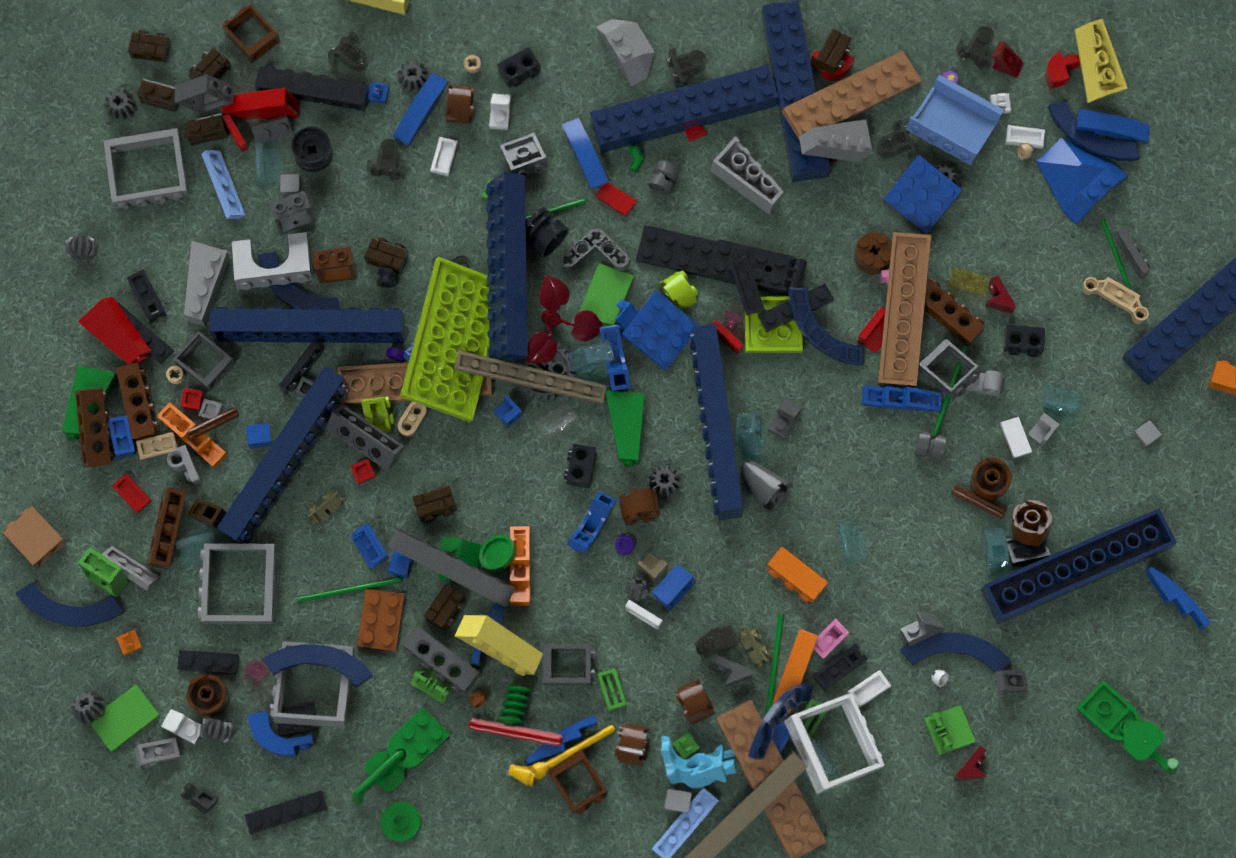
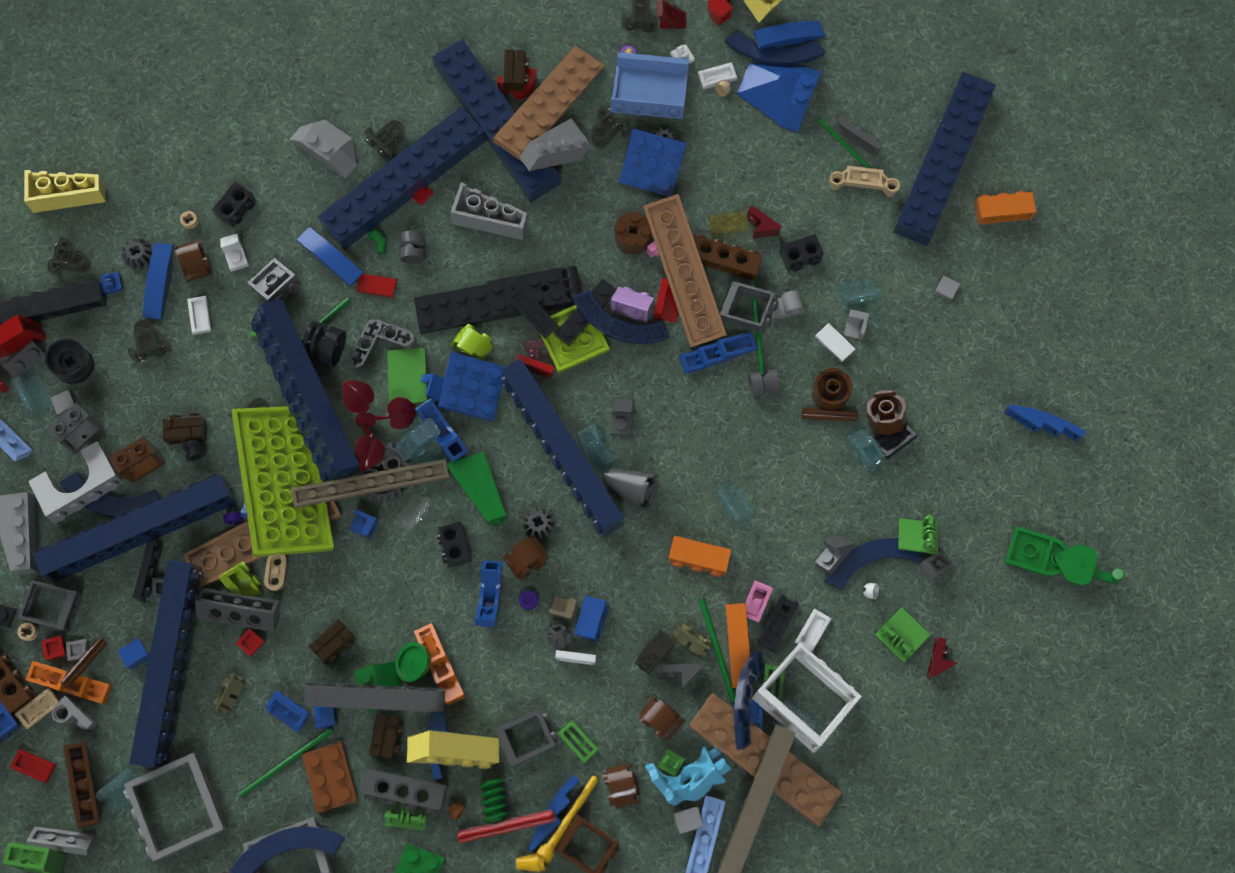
camera: 25 degrees left, 0 degrees up
(207, 513) = (114, 752): dark brown brick -> none
(842, 319) = (632, 304): none -> lavender slope
(1008, 647) = (919, 535): none -> bright green hinge
(1078, 566) = (945, 433): dark blue brick -> none

